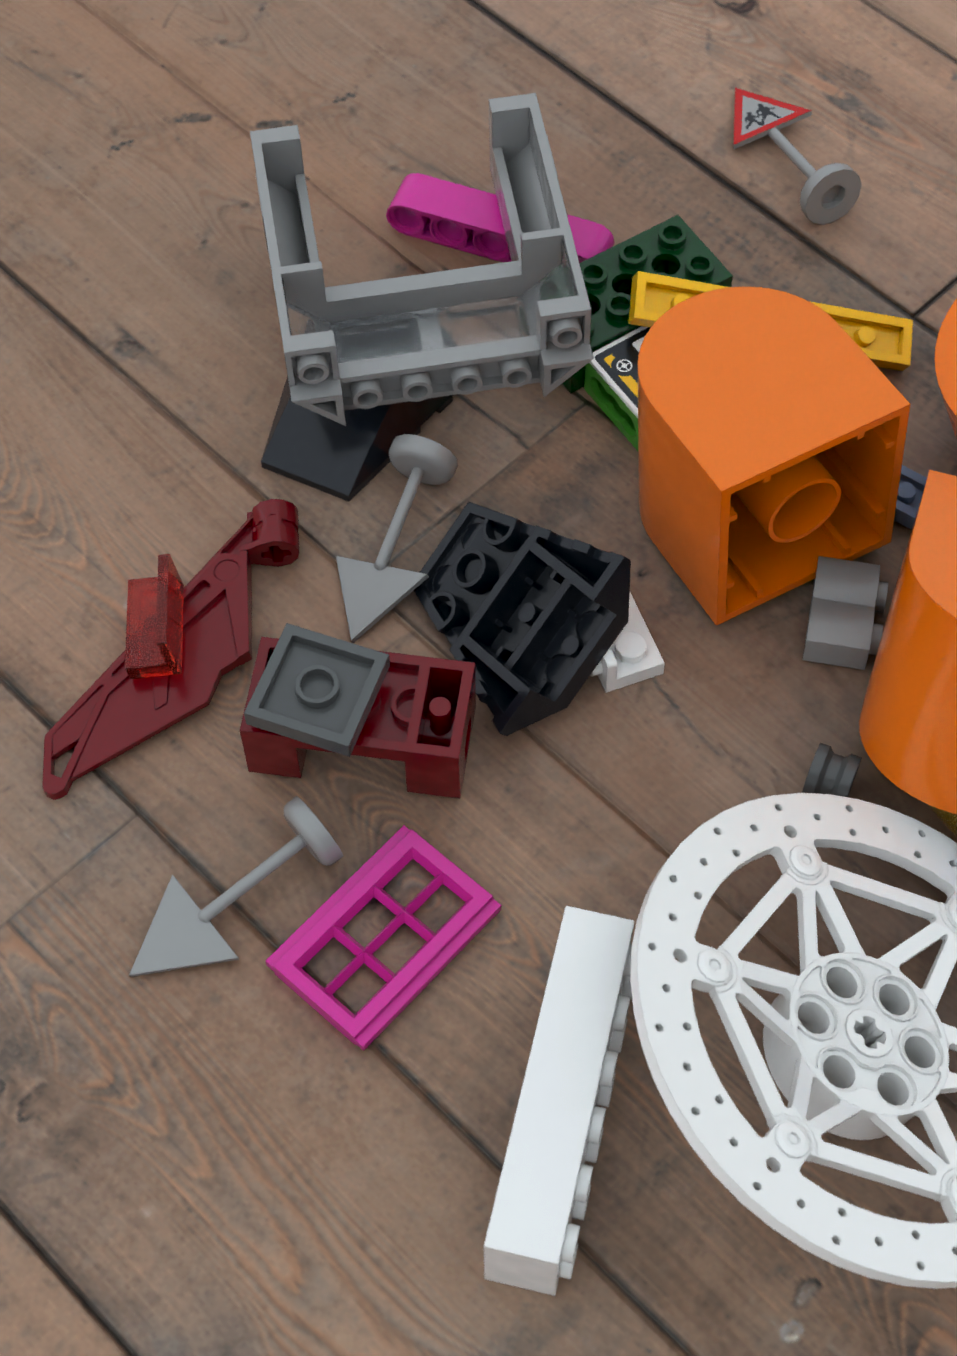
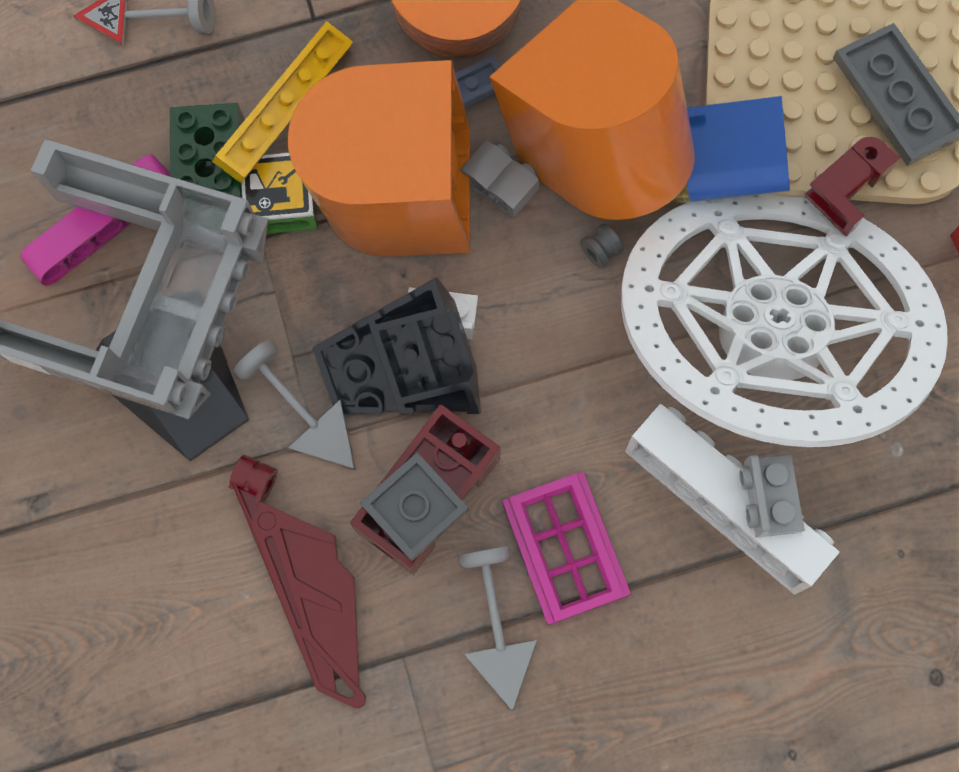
camera: 60 degrees left, 15 degrees up
(155, 623) = (283, 585): clear red panel -> none
(581, 1120) = (772, 496): none -> light grey bracket

